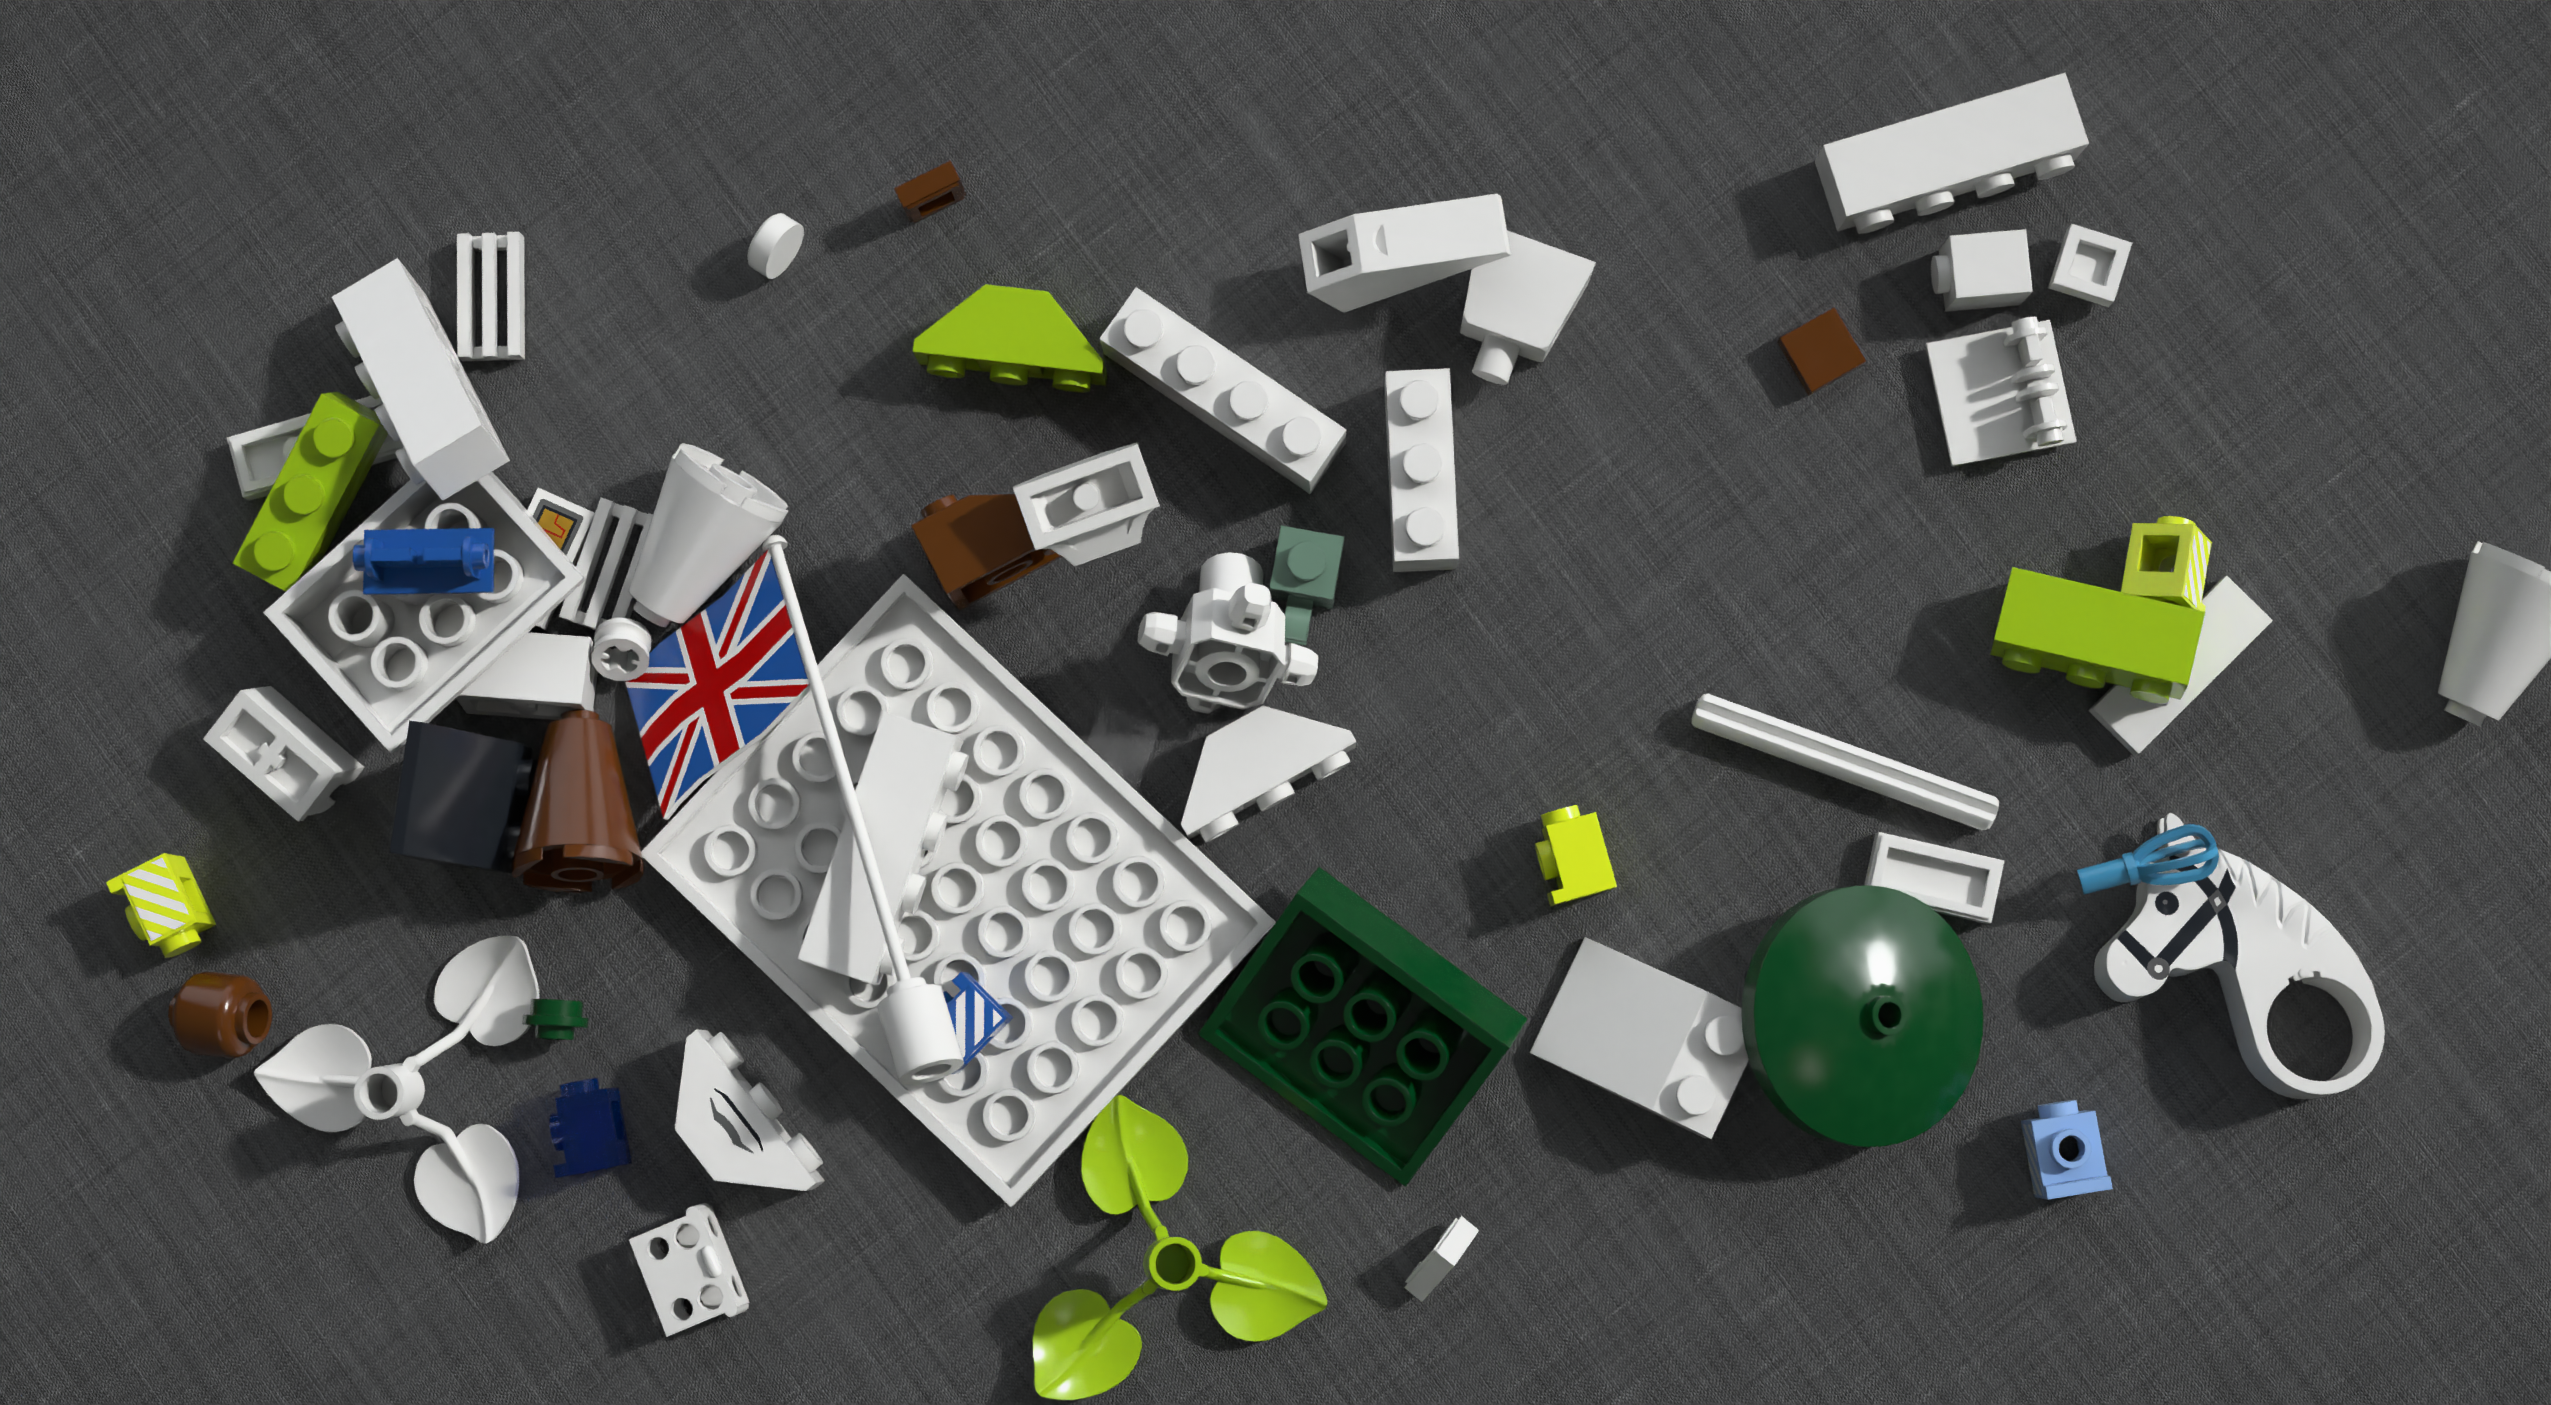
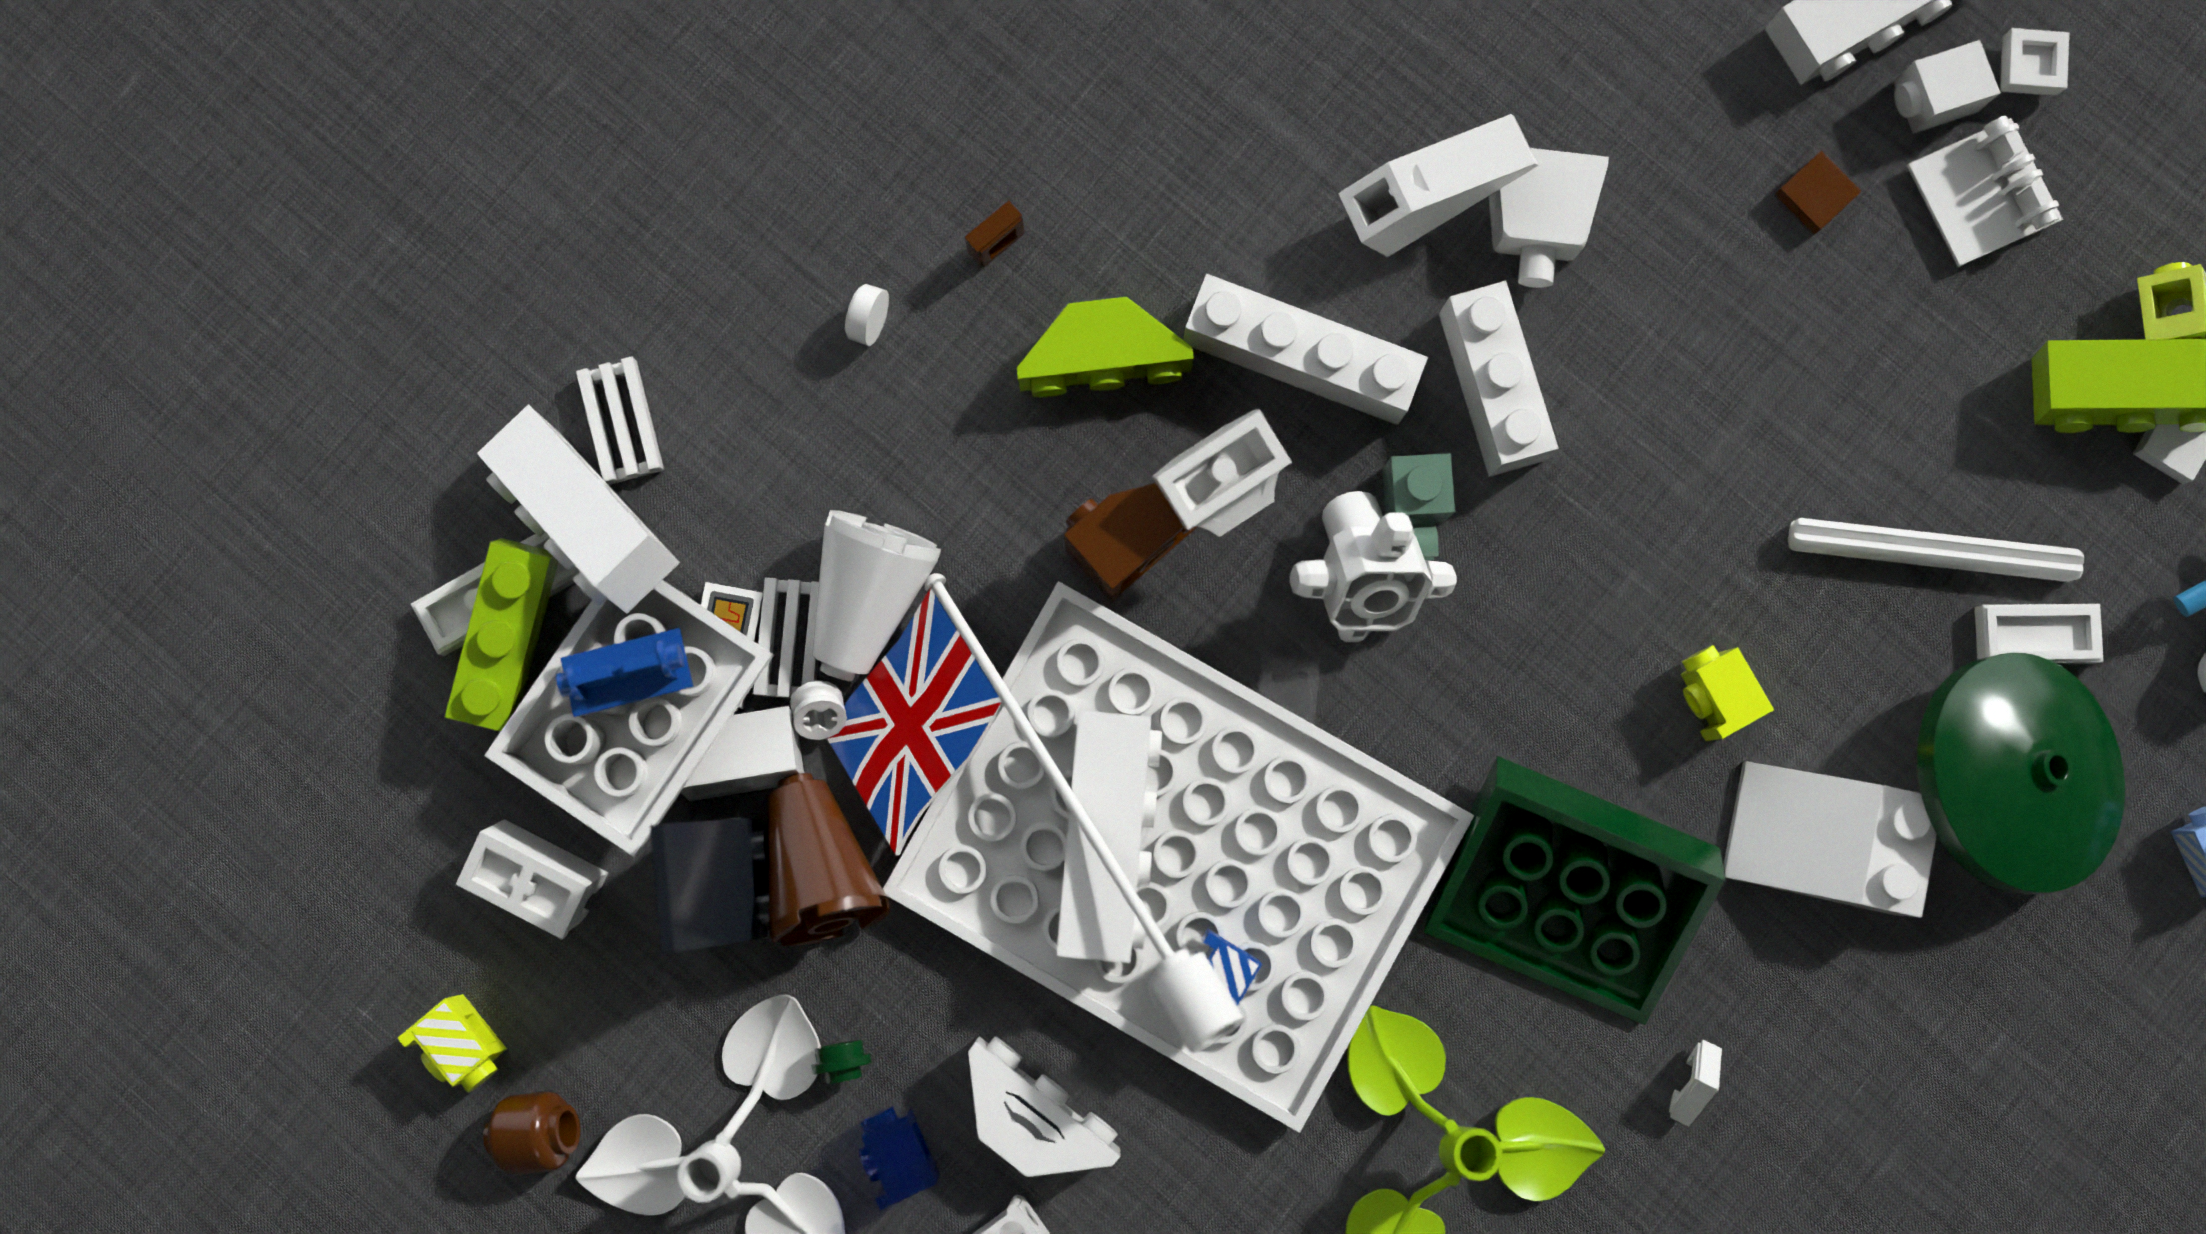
camera: 20 degrees left, 0 degrees up
(1256, 764) = (1418, 677): white slope -> none

